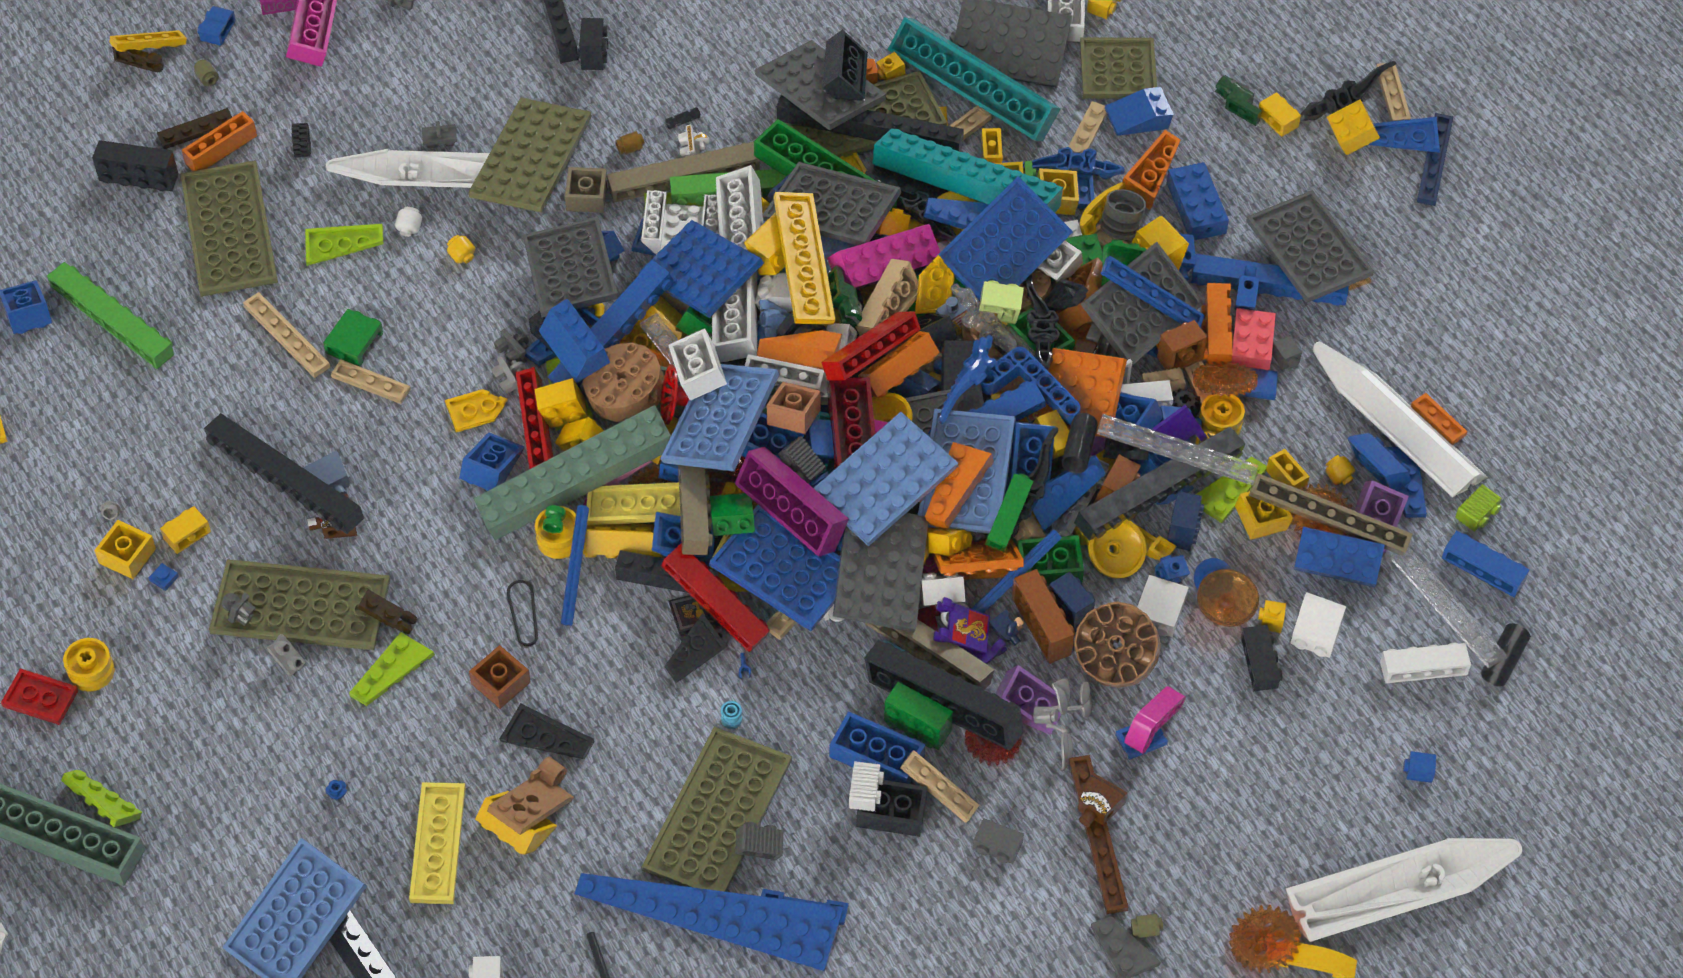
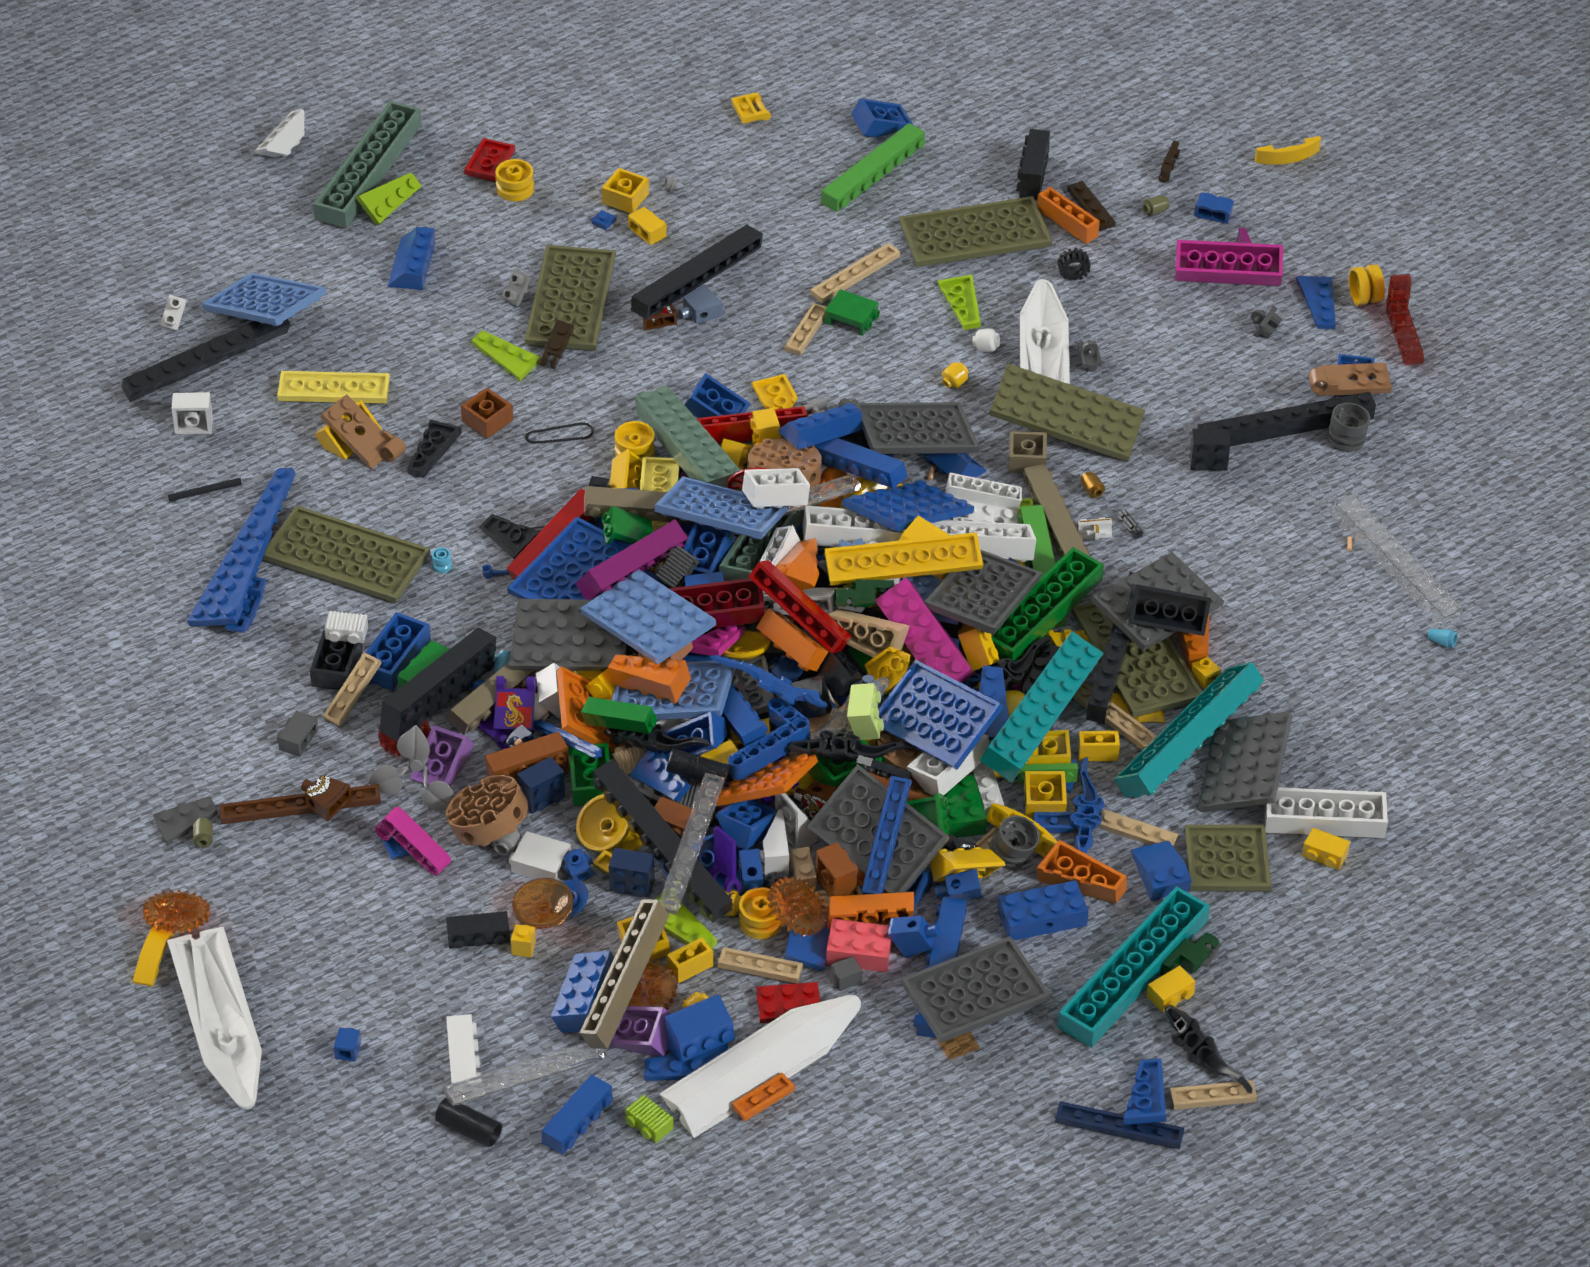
camera: 90 degrees right, 10 degrees down
(147, 40) = (1183, 161): yellow plate -> none
(217, 769) = (413, 259): none -> blue slope
(238, 609) = (556, 251): dark grey hips -> none
(336, 794) = (390, 328): blue plate -> none
(554, 518) = (635, 427): green wheel -> none
(574, 565) = (595, 450): blue axle -> none
(759, 841) = (309, 573): dark grey brick -> none
(793, 407) = (725, 550): nougat brick -> none
(1260, 136) = (1132, 967): none -> teal brick
(1280, 420) = (760, 965): none -> tan plate
(1318, 625) = (502, 967): white slope -> none
(1320, 402) = (779, 999): none -> red plate
(1353, 127) = (1150, 1045): yellow brick -> none

